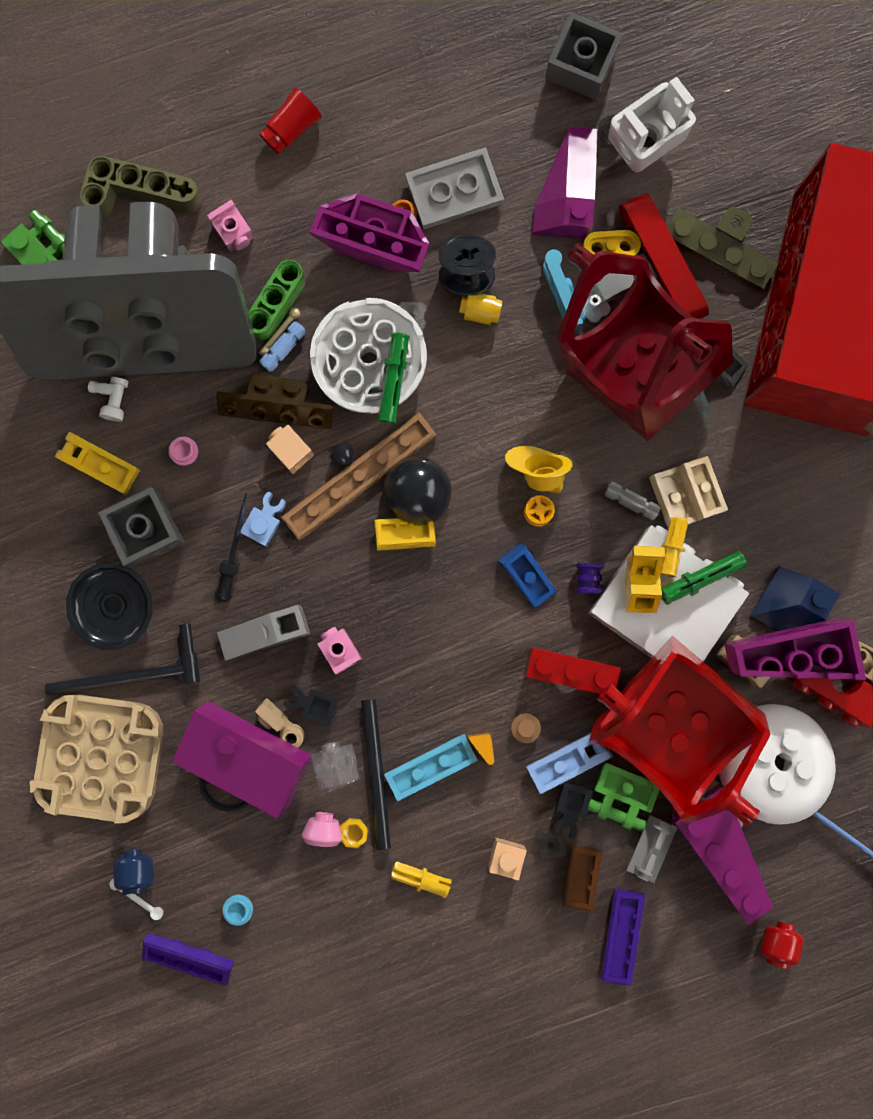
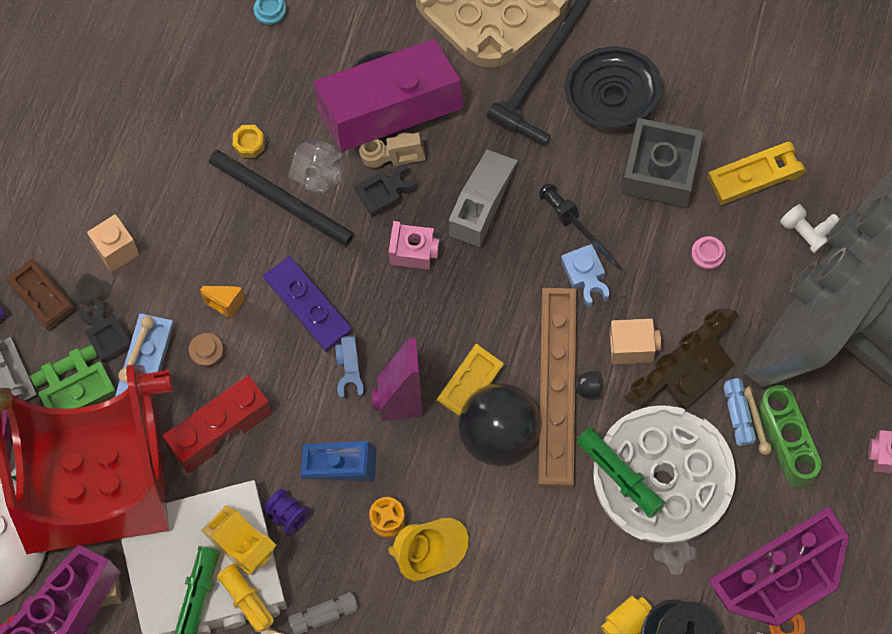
camera: 135 degrees right, 15 degrees down
(322, 830) = (272, 116): bright pink cone -> none
(421, 879) = (161, 164): yellow axle -> none
(430, 767) = (246, 242): medium azure plate -> none
(437, 689) = (307, 304): none -> dark purple plate
(446, 571) = (399, 385): none -> magenta wedge
(455, 626) = (347, 355): none -> medium blue plate
(590, 763) = (147, 323): none -> tan hinge

